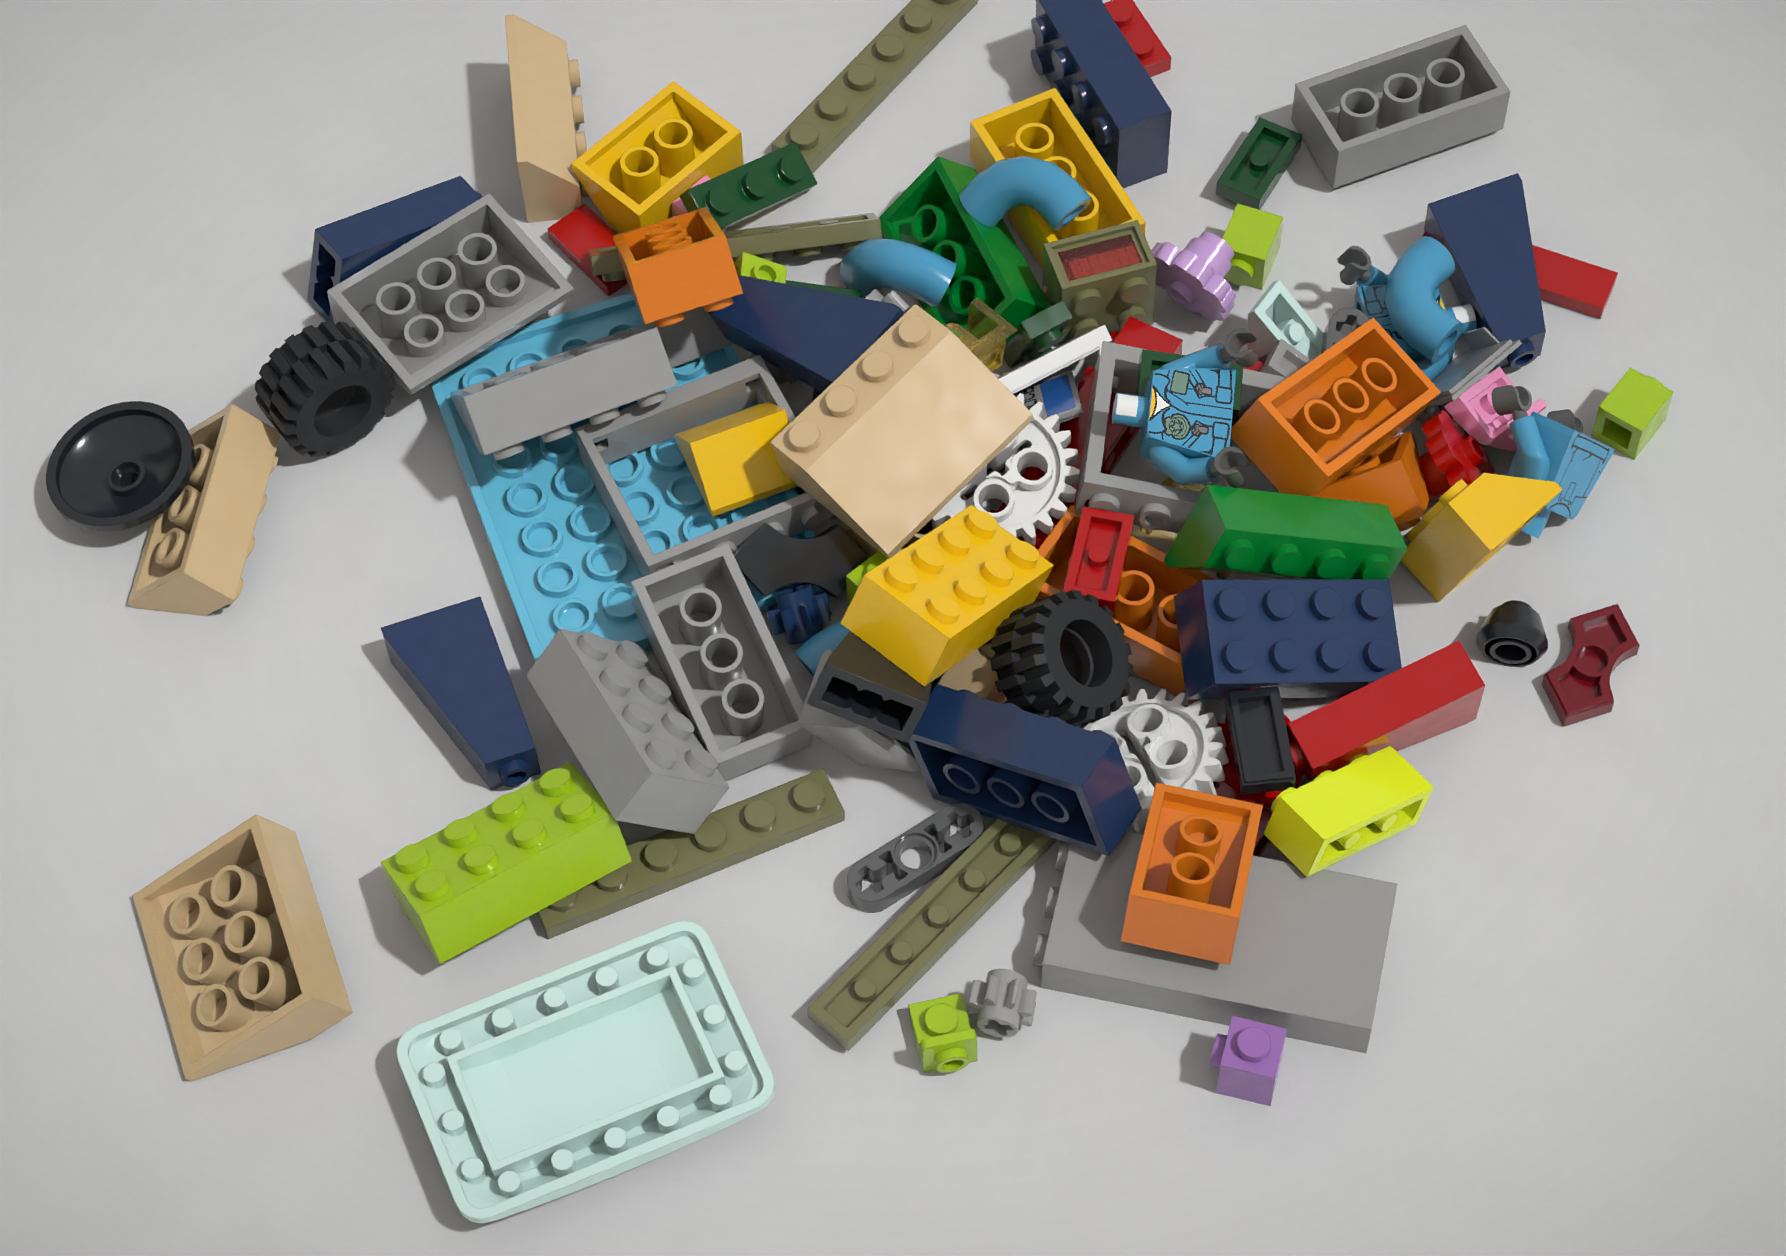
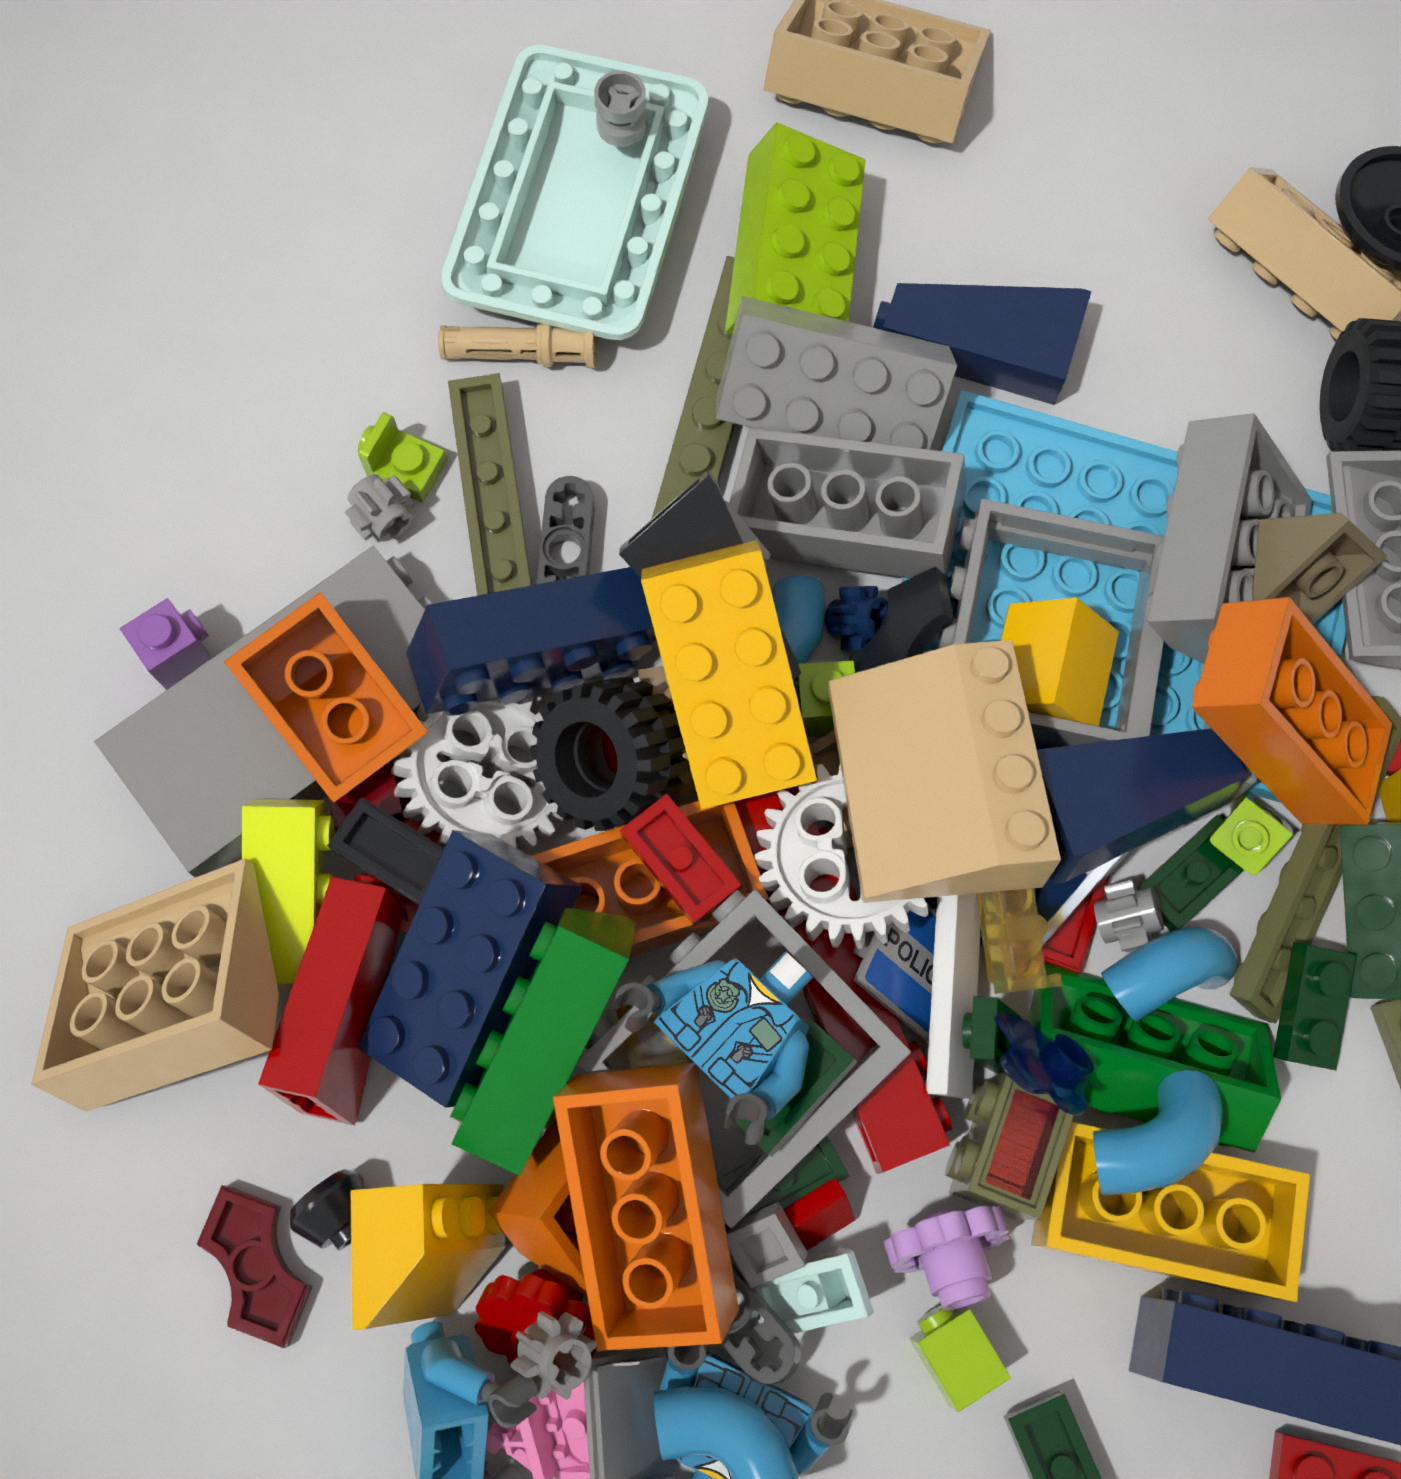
camera: 125 degrees right, 15 degrees up
(484, 1053) = (620, 108): none -> light grey wheel
(531, 333) = (1311, 560): none -> dark tan slope
(769, 1030) = (539, 343): none -> tan pin
(844, 193) = (1314, 1006): none -> dark green plate
(1040, 269) = (1046, 1064): none -> clear blue plate
(1465, 405) = (554, 1354): none -> light grey gear
(1487, 824) = (160, 991): none -> tan slope

